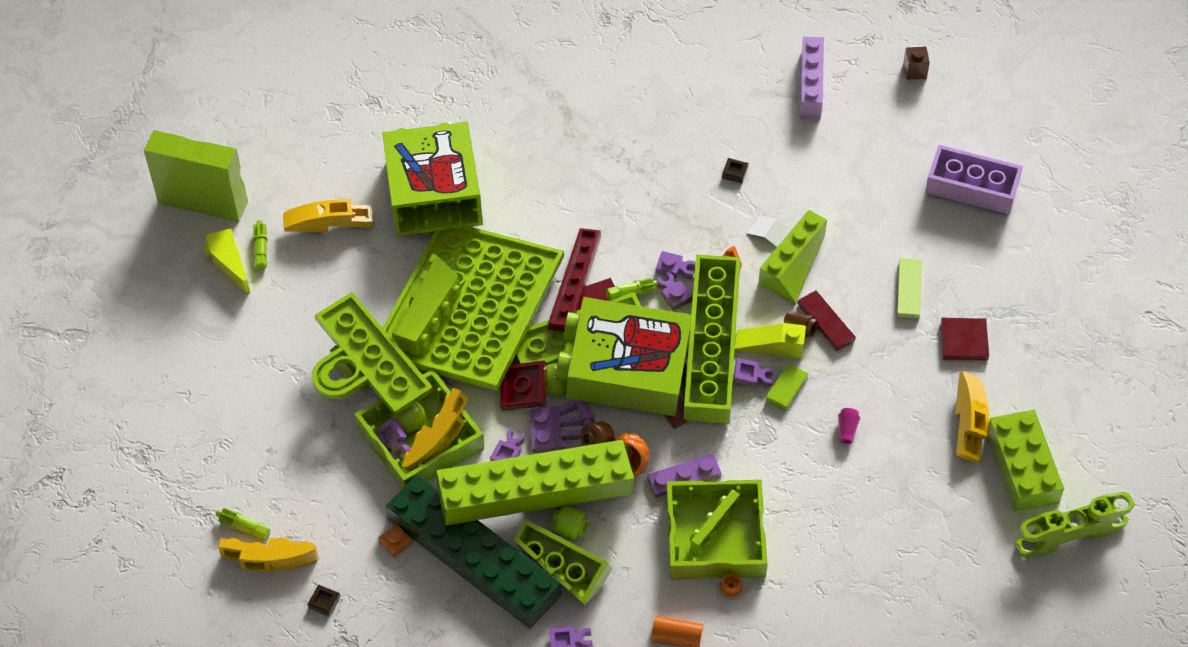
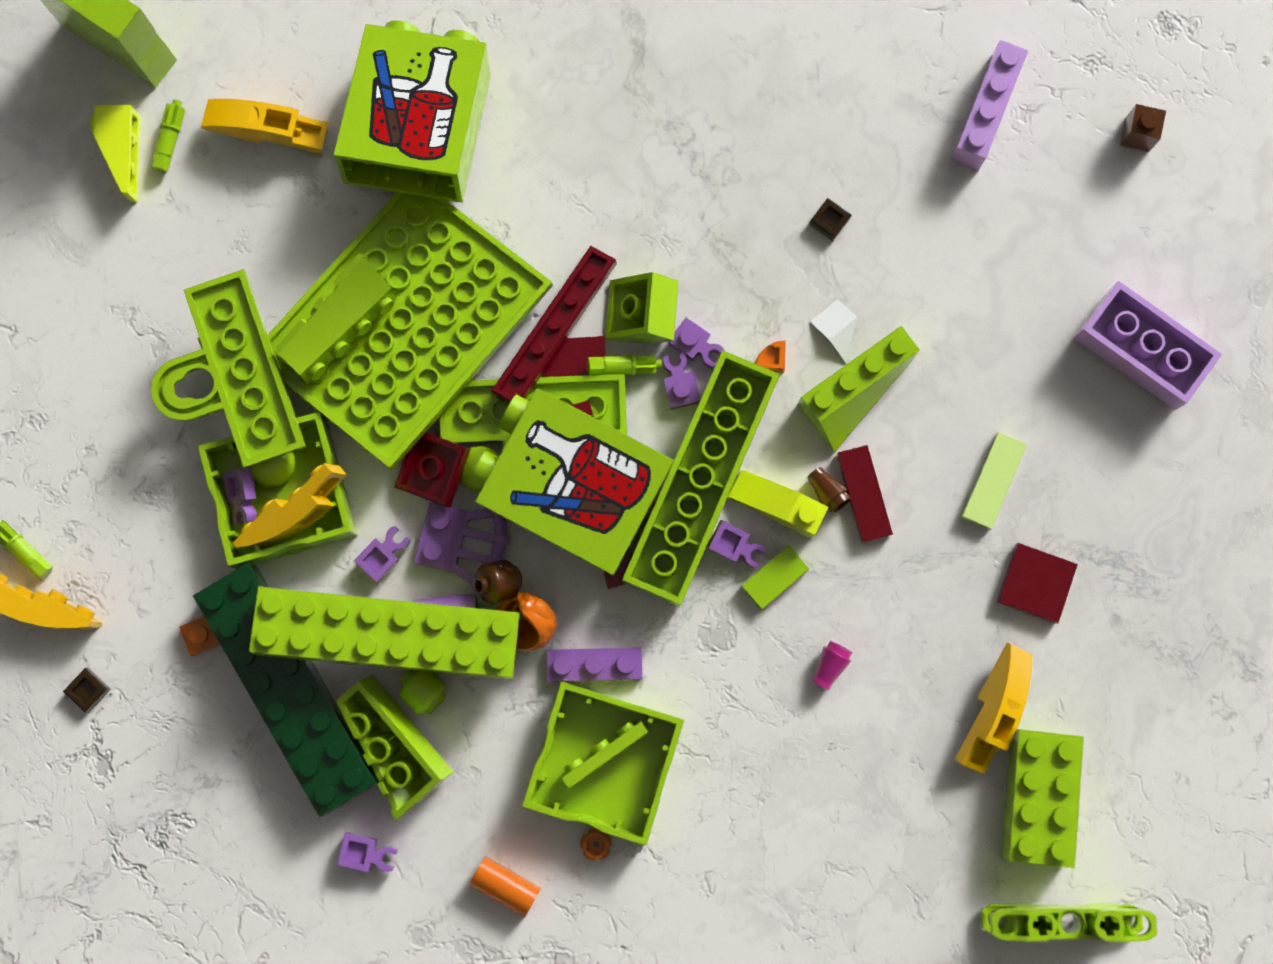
camera: 20 degrees right, 25 degrees up
(630, 253) = (642, 309): none -> lime slope

